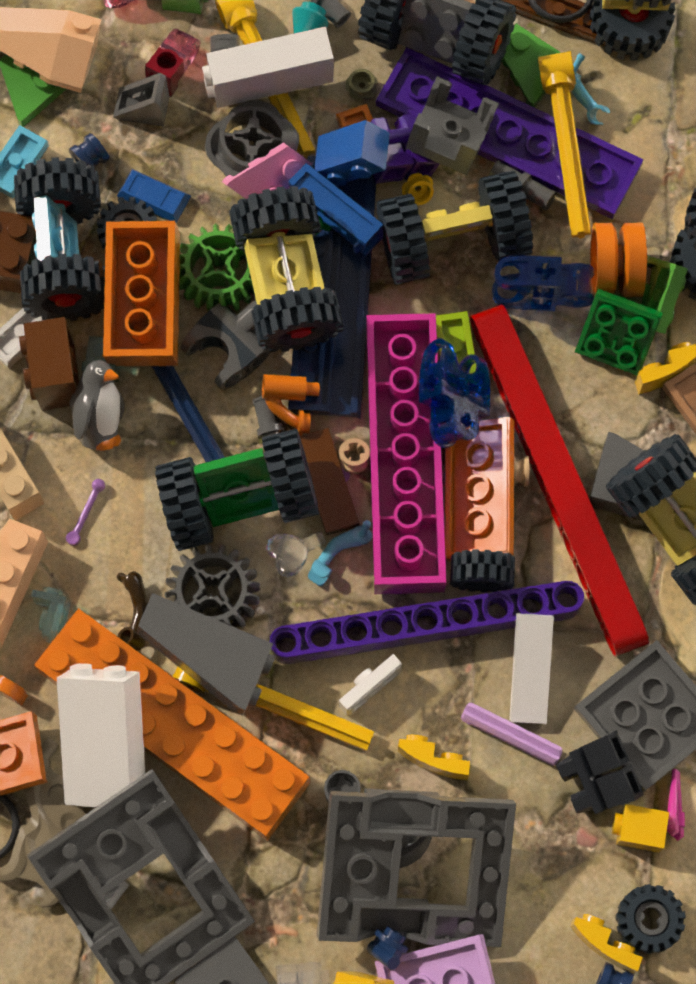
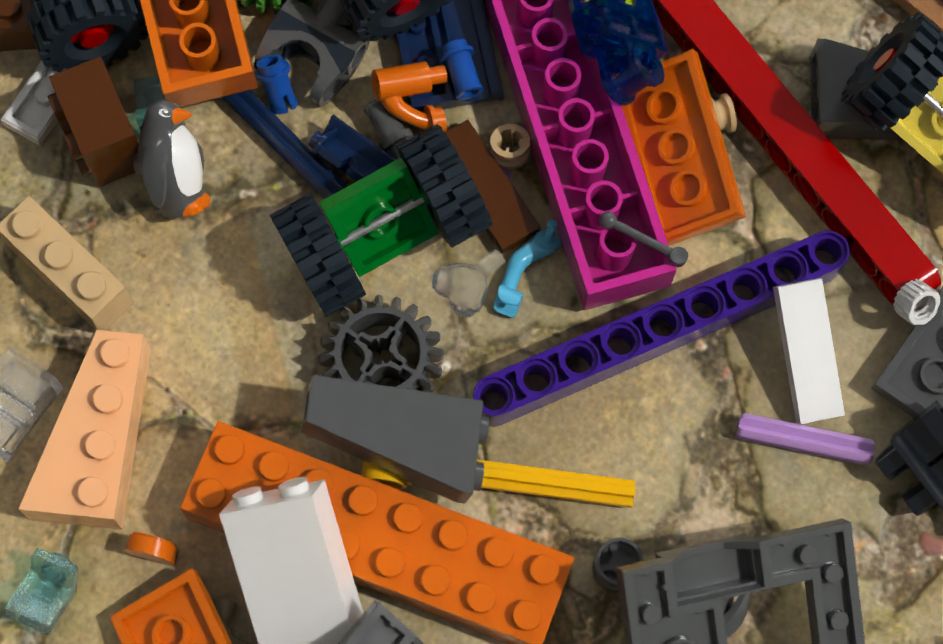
camera: 20 degrees left, 0 degrees up
(56, 616) = (186, 446): clear light blue bracket -> none
(73, 537) = (182, 335): medium lavender hinge -> none
(134, 585) = (282, 379): dark brown piece -> none
(191, 358) = (273, 73): none -> blue pin
(232, 429) = (348, 150): none -> dark blue hinge
(331, 386) = (461, 68): none -> blue pin
(369, 683) = (611, 423): white plate -> none
(421, 752) = (706, 494): yellow slope -> none
(449, 572) = (676, 256): none -> dark grey hinge
(482, 571) = (715, 245): black bush -> none
(618, 646) = (917, 302): none -> white axle

